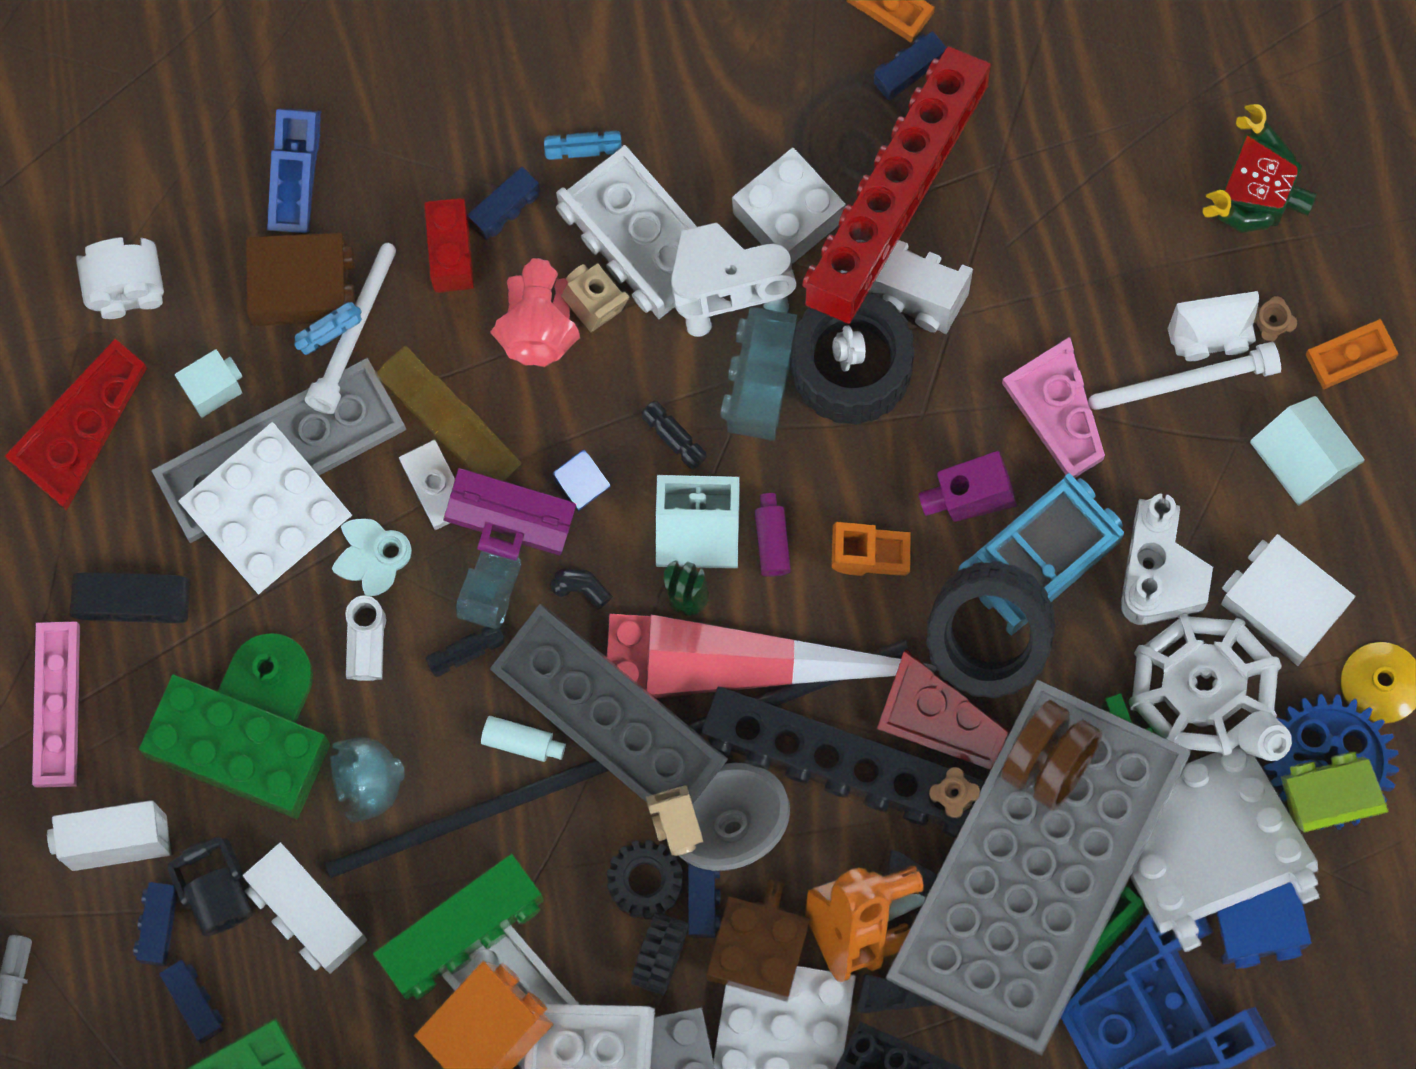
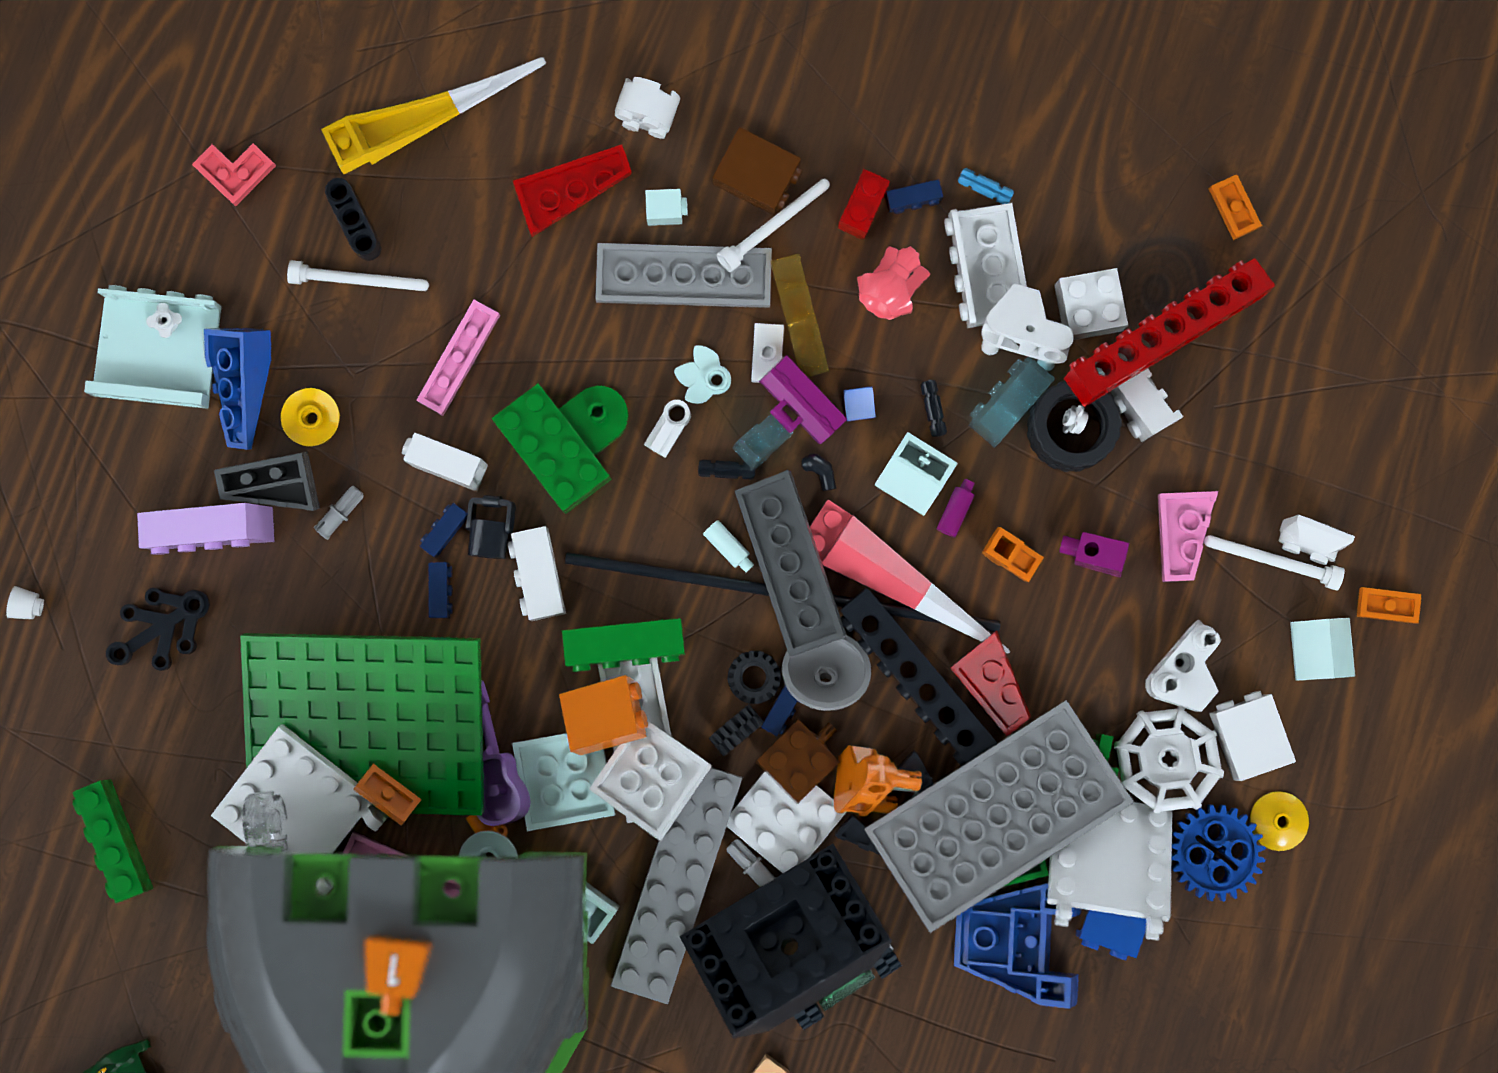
camera: 25 degrees right, 10 degrees up
(130, 597) = (540, 316): black beam -> none
(265, 508) = (654, 308): white plate -> none
(293, 169) = (794, 97): blue slope -> none
(328, 328) = (757, 215): dark azure axle -> none
(366, 777) = (621, 515): clear light blue cylinder -> none
(588, 306) = (928, 297): tan brick -> none
(676, 820) = (792, 656): tan brick -> none
(686, 588) = (884, 512): dark green arm -> none
(908, 65) = (1223, 254): dark blue piece -> none
(955, 804) = (969, 748): medium nougat plate -> none
(979, 676) = (1035, 676): black tyre -> none
(1051, 755) = (1047, 761): reddish brown wheel -> none
(1053, 542) = (1118, 617): door -> none
(1260, 180) = (1400, 460): torso -> none
(1264, 736) = (1185, 817): white hat -> none
(1277, 308) = (1359, 560): medium nougat plate -> none
(1332, 792) = (1206, 879): lime slope -> none

